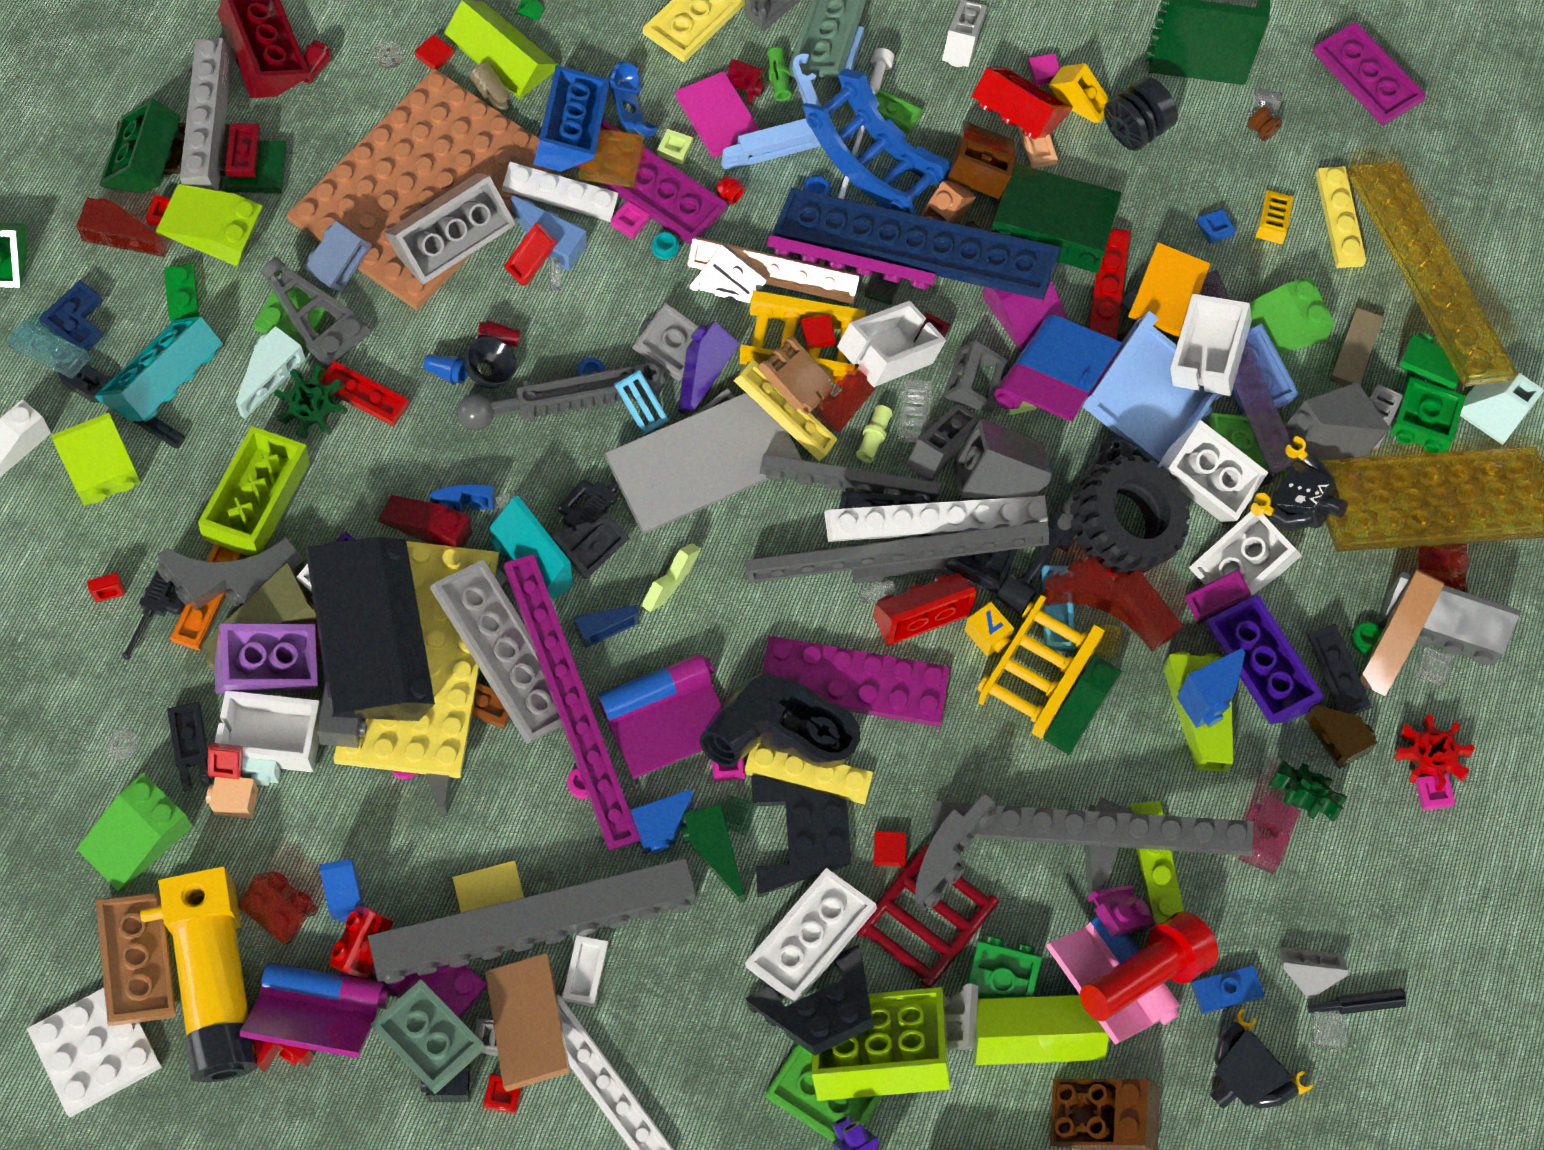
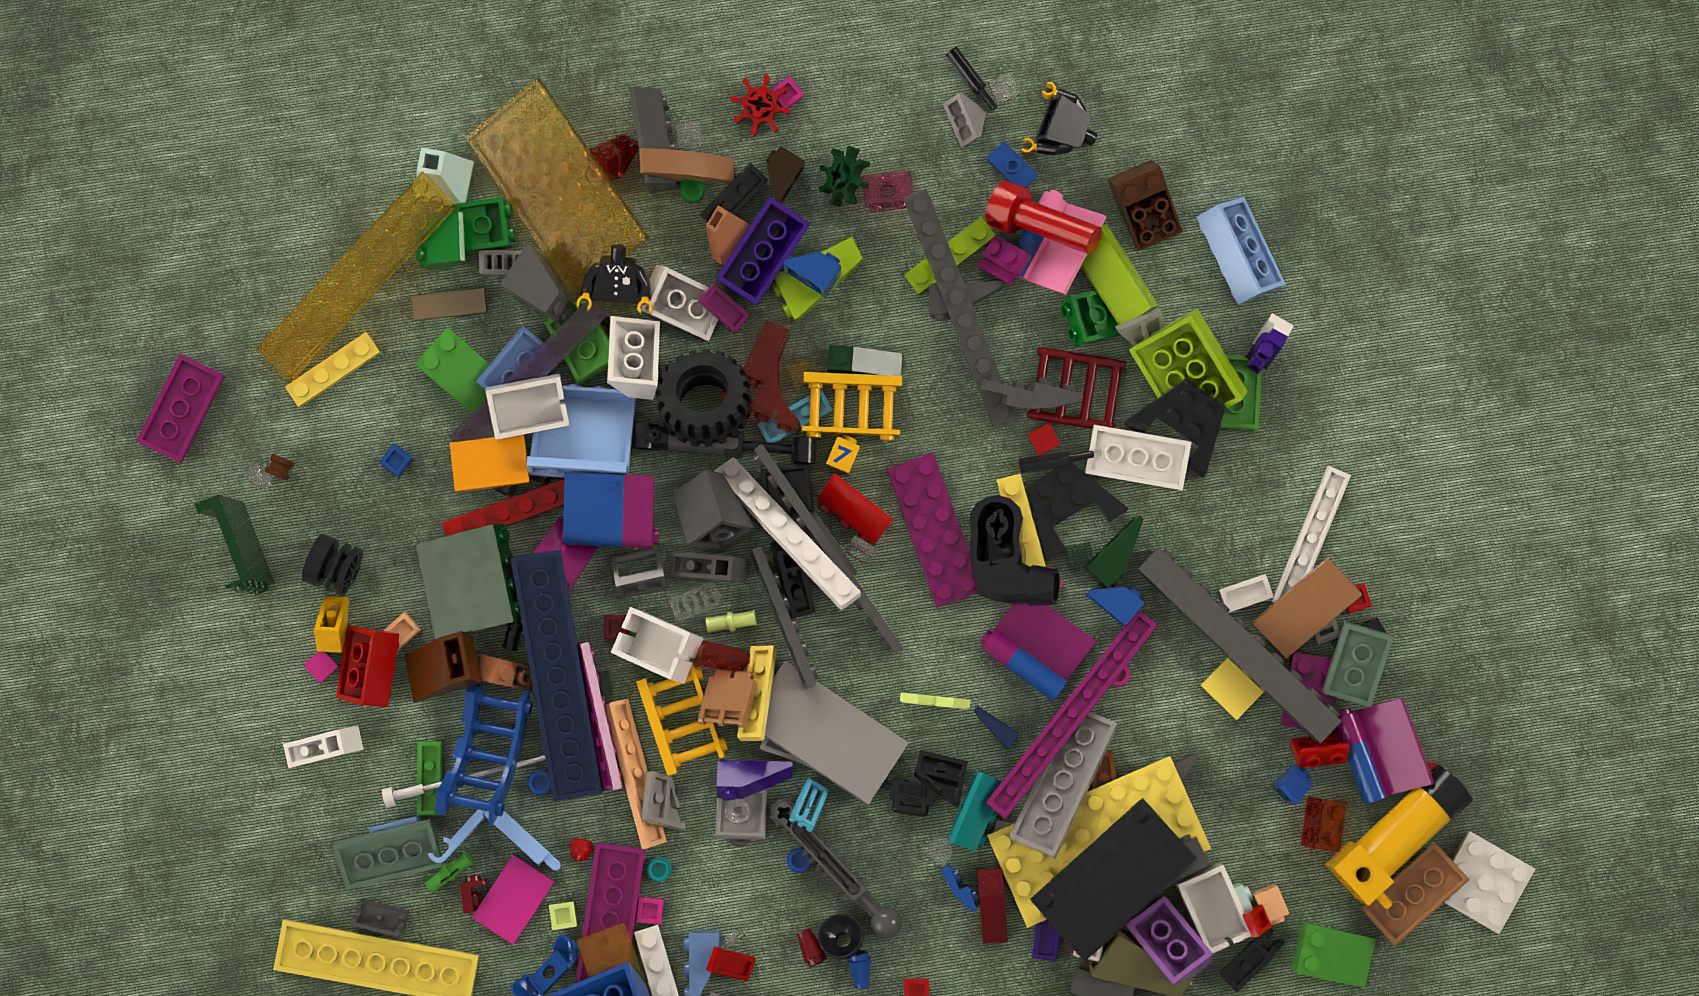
camera: 110 degrees left, 20 degrees up
(673, 339) = (737, 818): none -> clear plate
(817, 332) = (675, 707): red tile -> none
(861, 839) = (1051, 460): none -> black axle
(1271, 232) = (381, 422): yellow slope -> none
(1307, 637) = (724, 234): none -> nougat slope

